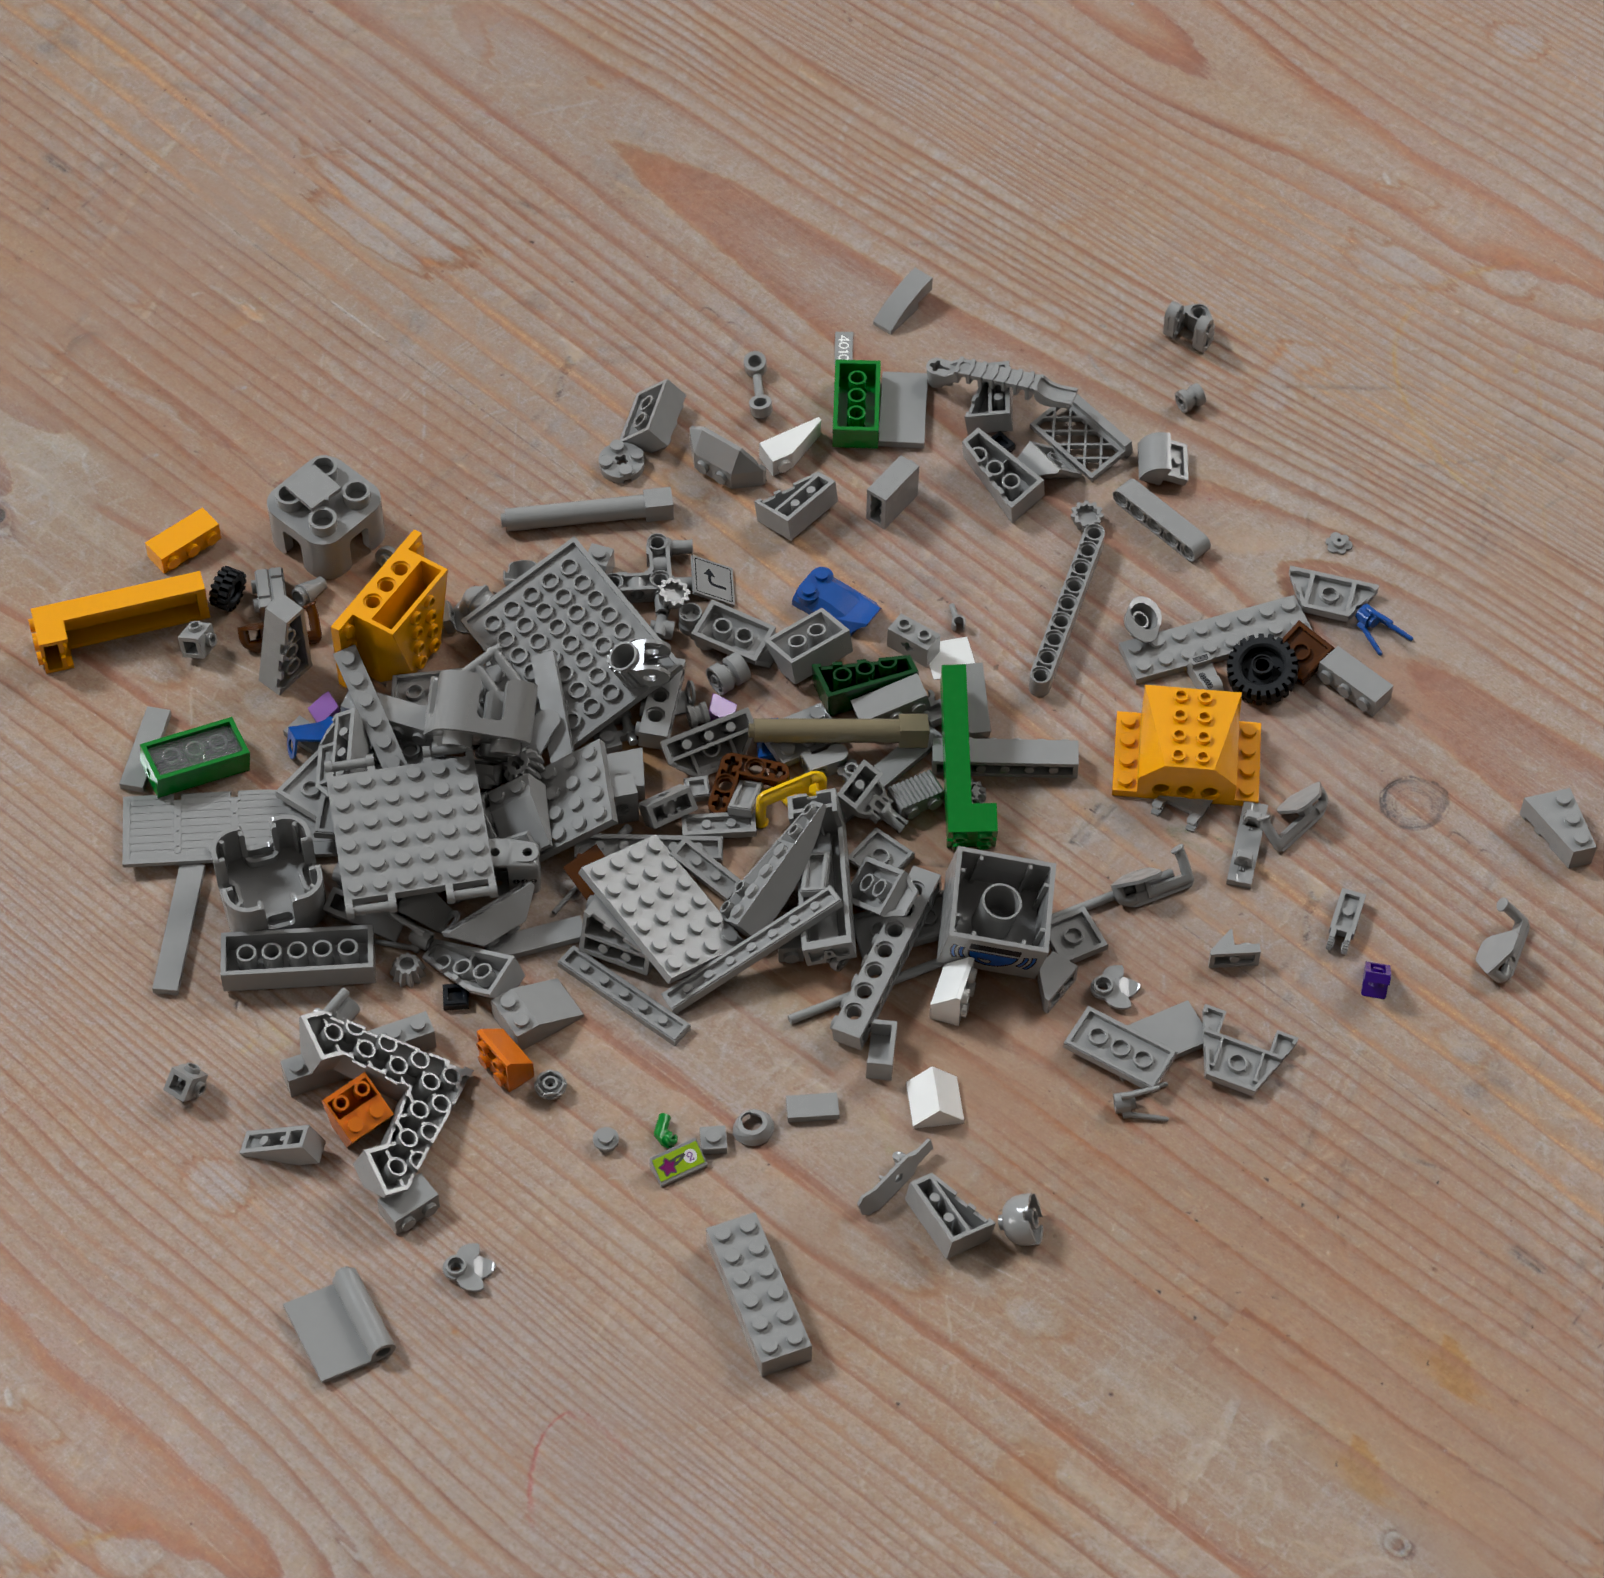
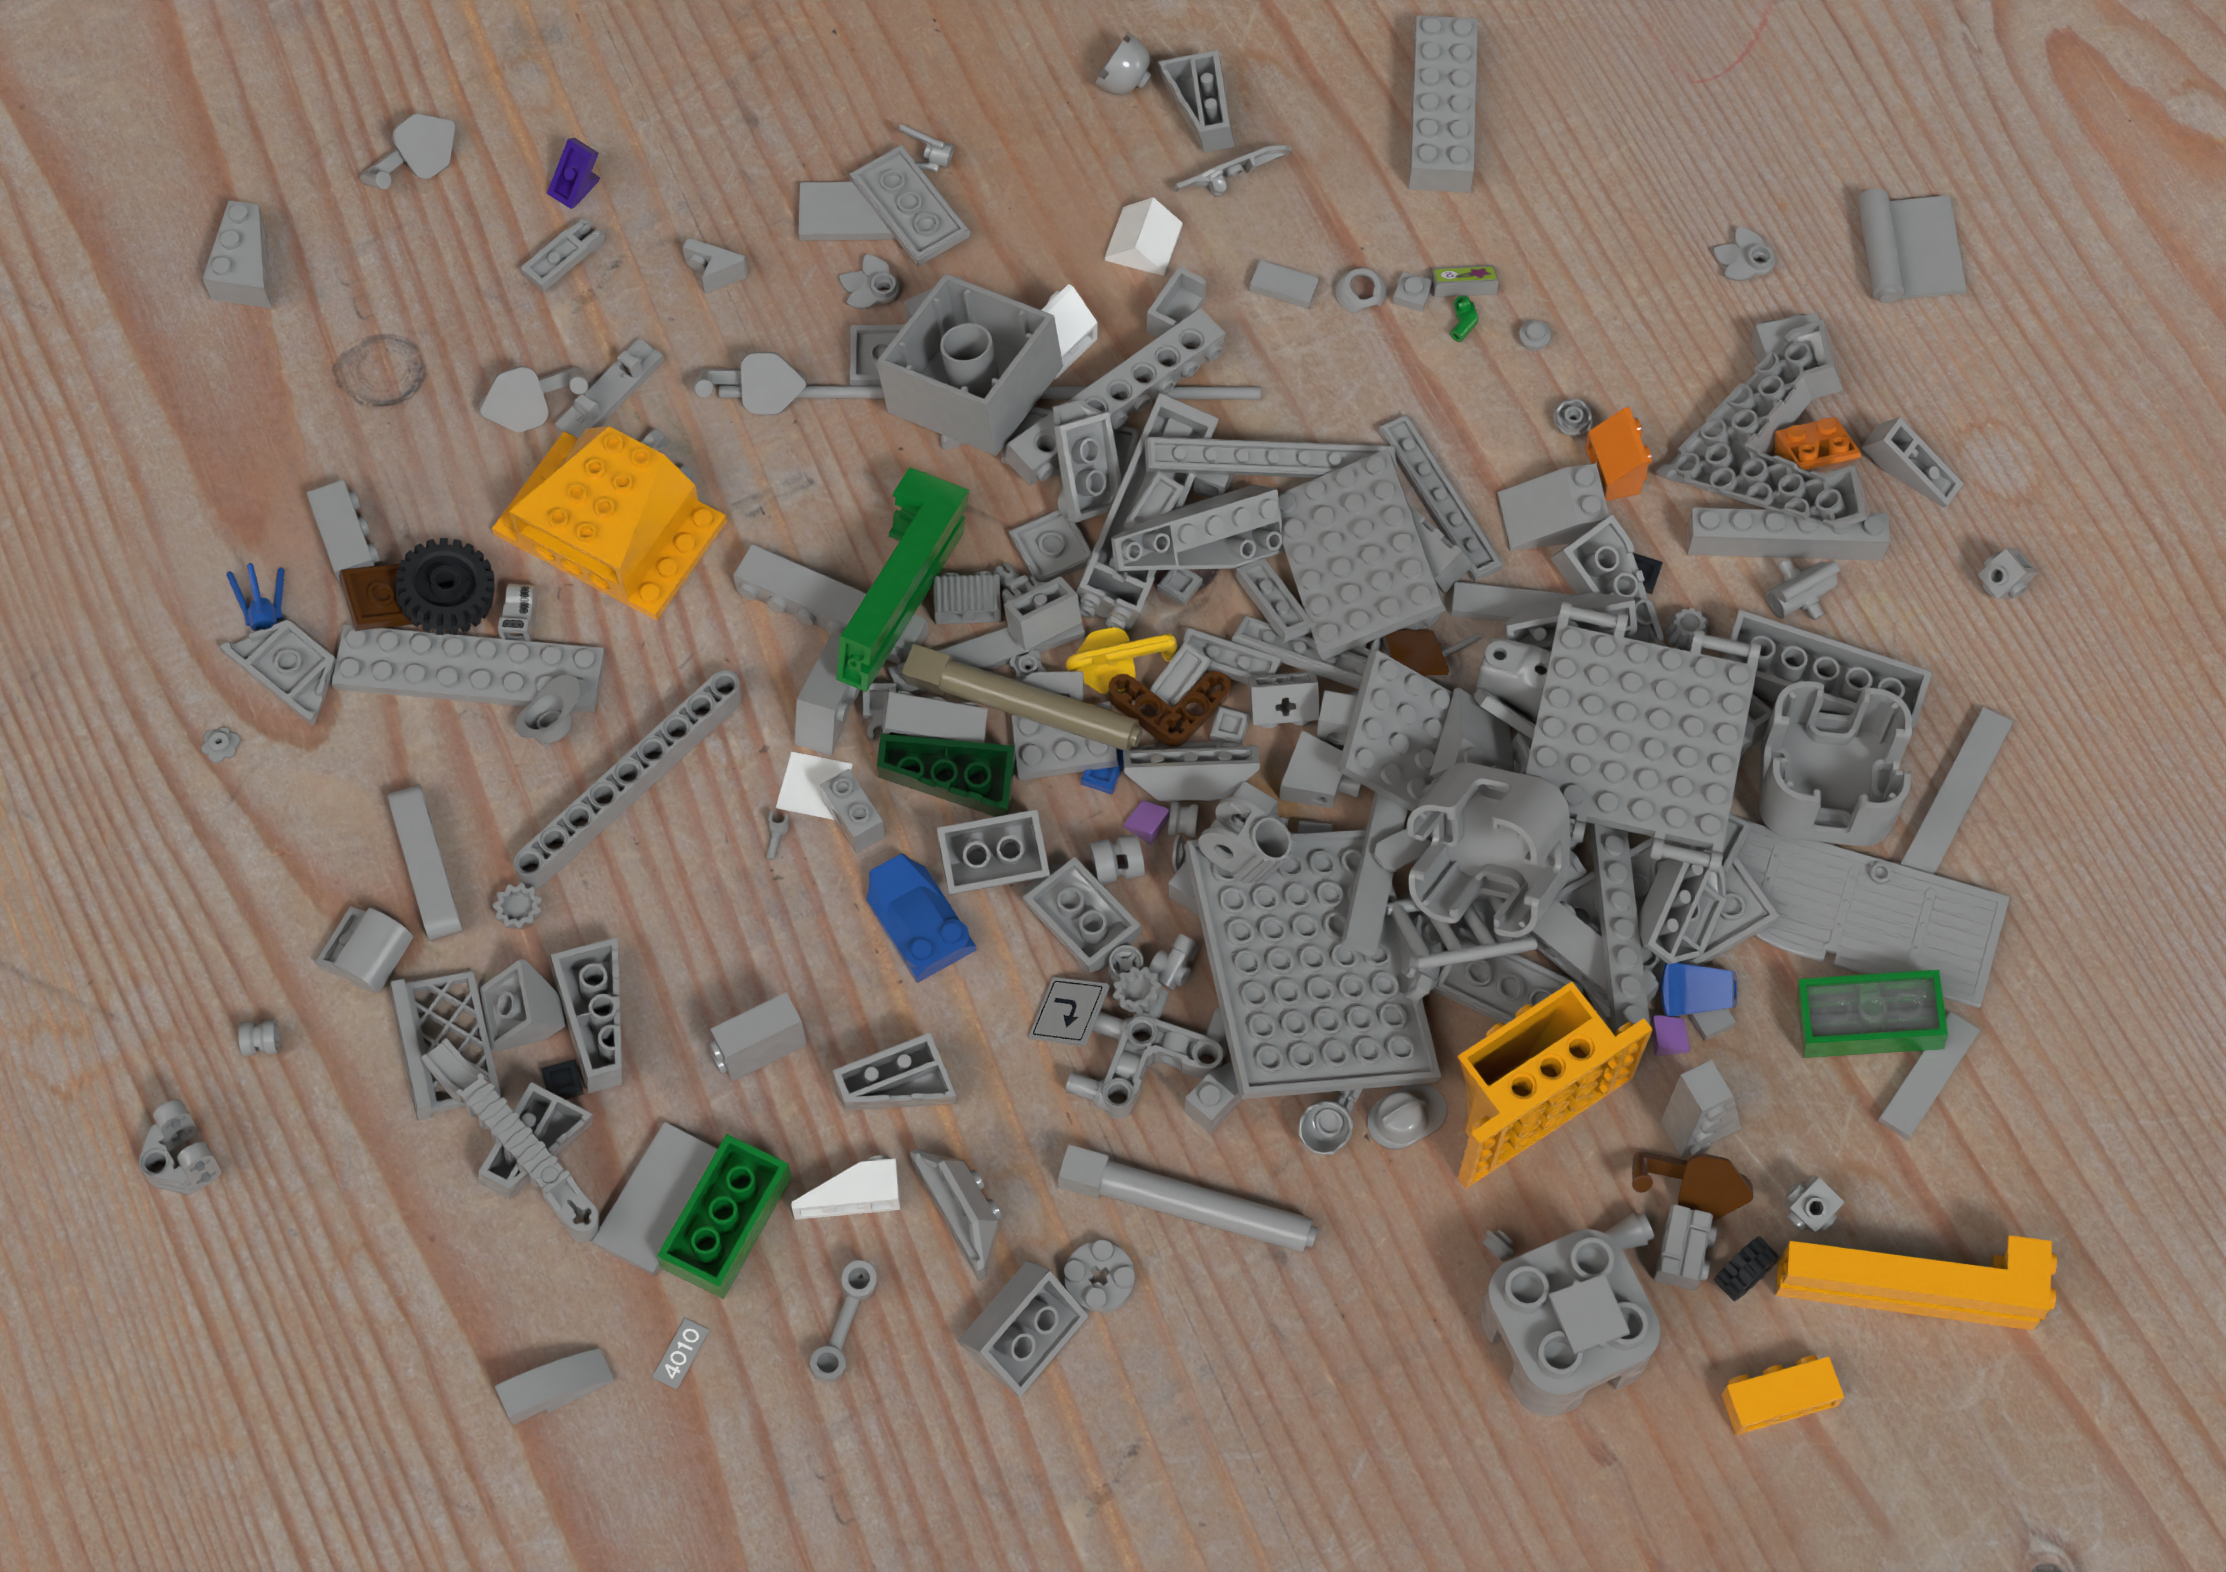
camera: 155 degrees left, 10 degrees up
(449, 618) = (1451, 1104): light grey tile -> none
(1237, 1062) = (788, 144): light grey wing -> none

